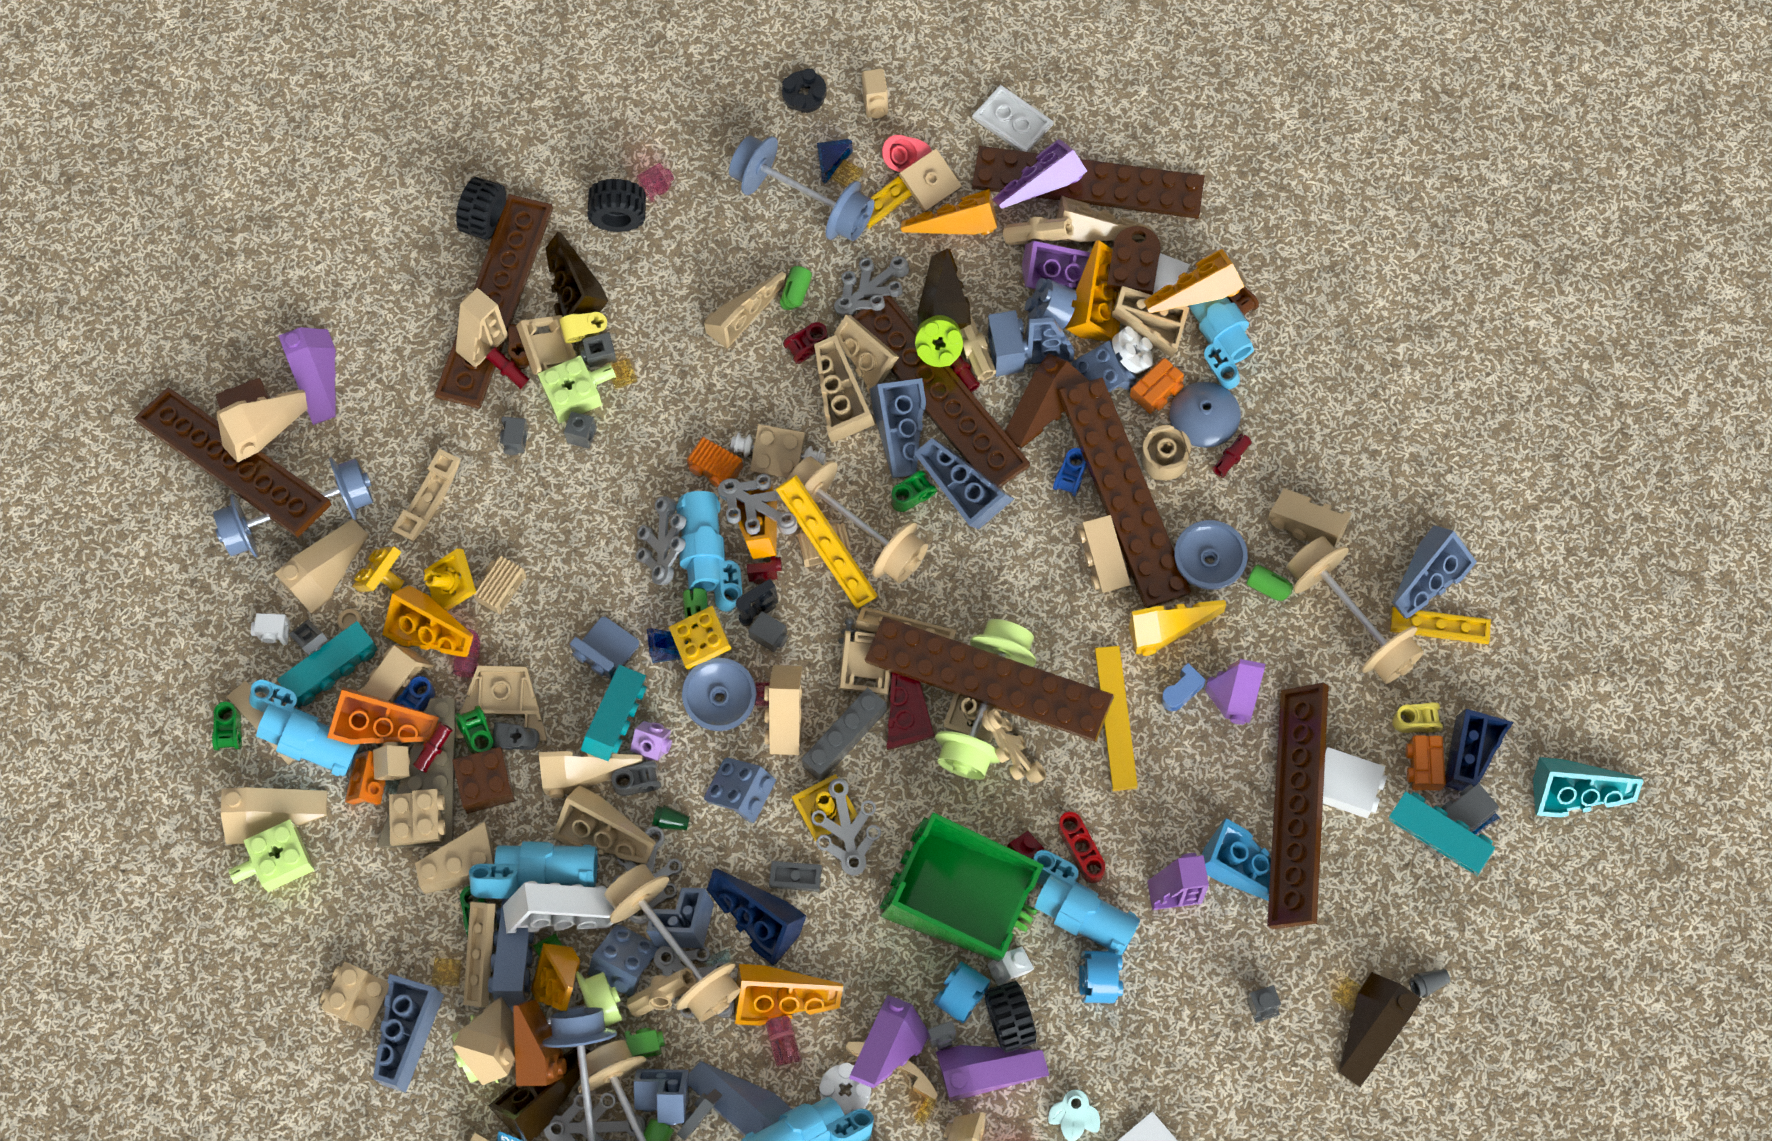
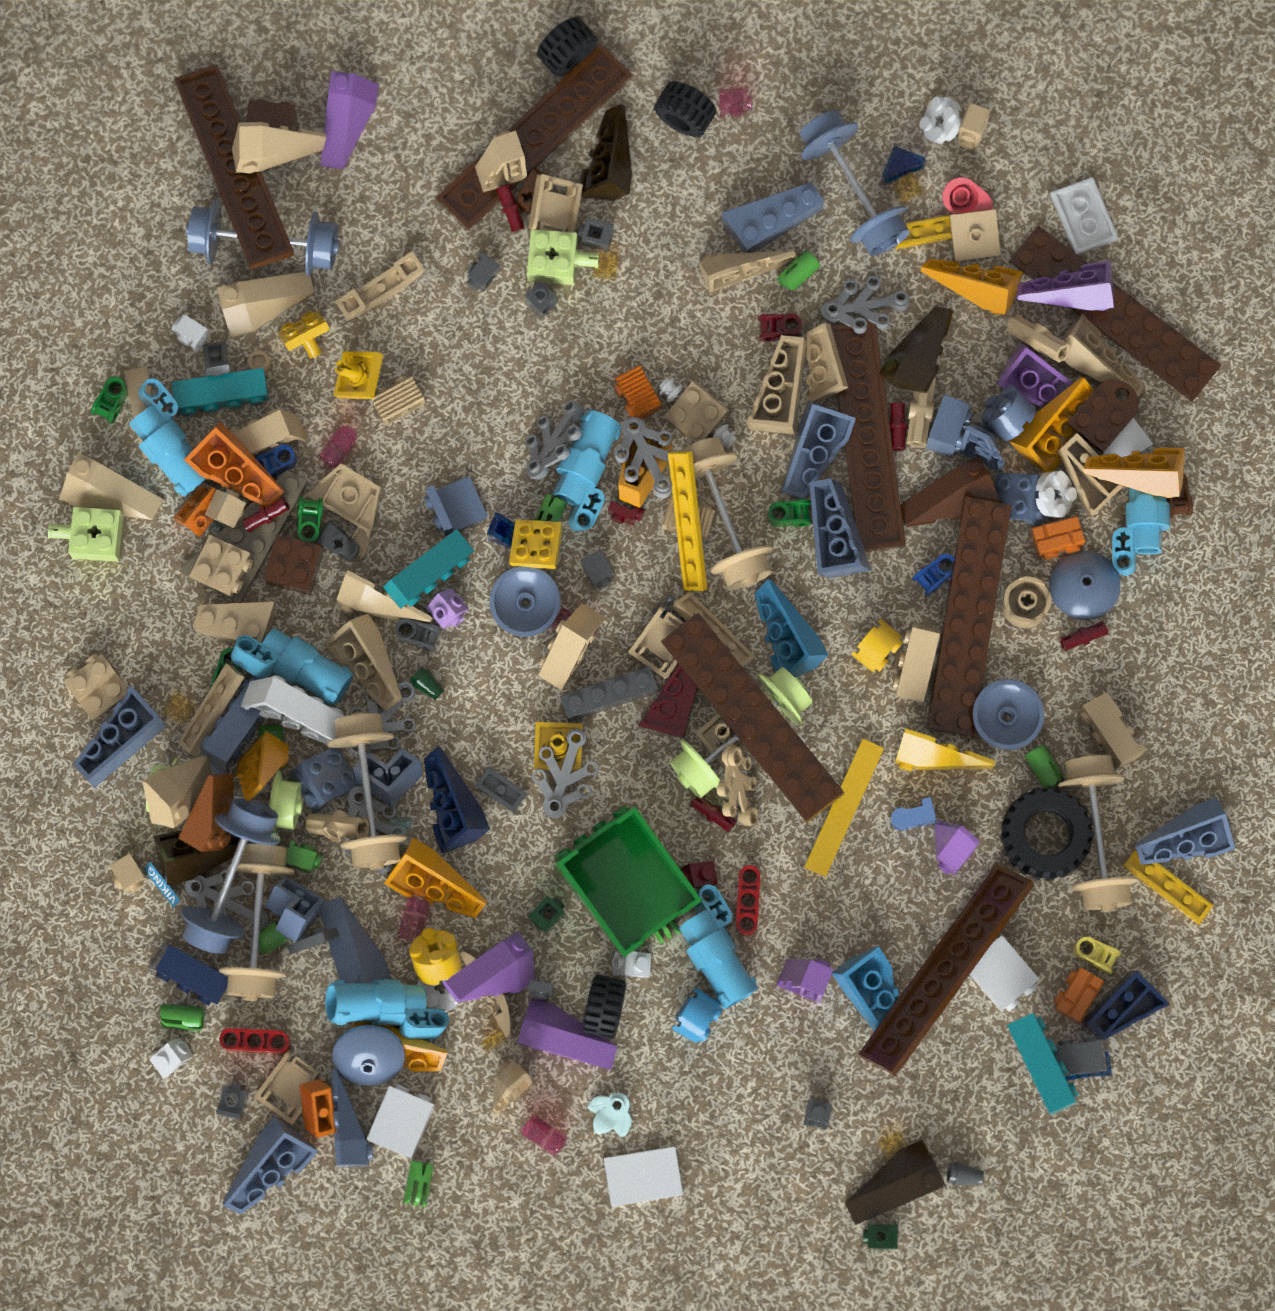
camera: 30 degrees right, 10 degrees up
(422, 622) = (315, 396): light orange wedge -> none
(581, 326) = (591, 205): light yellow piece -> none
(740, 788) = (498, 690): sand blue bracket -> none
(744, 257) = (770, 217): none -> sand blue wedge
(762, 598) = (604, 538): black plate -> none
(804, 79) = (924, 77): black plate -> none
(824, 1061) = (435, 956): none -> yellow brick
(847, 114) = (939, 109): none -> white plate
(903, 975) = (537, 915): none -> dark green brick
(946, 352) = (879, 402): brick -> none
(962, 992) = (578, 964): dark azure brick -> none
(971, 592) = (792, 638): none -> dark azure wedge
(1002, 788) = (713, 813): none -> dark red pin
(1060, 558) = (877, 646): none -> yellow brick
(1317, 608) = (1060, 804): none -> black tyre
(1402, 1078) = (891, 1236): none -> dark green brick
(1571, 785) = (1187, 1083): teal wedge -> none

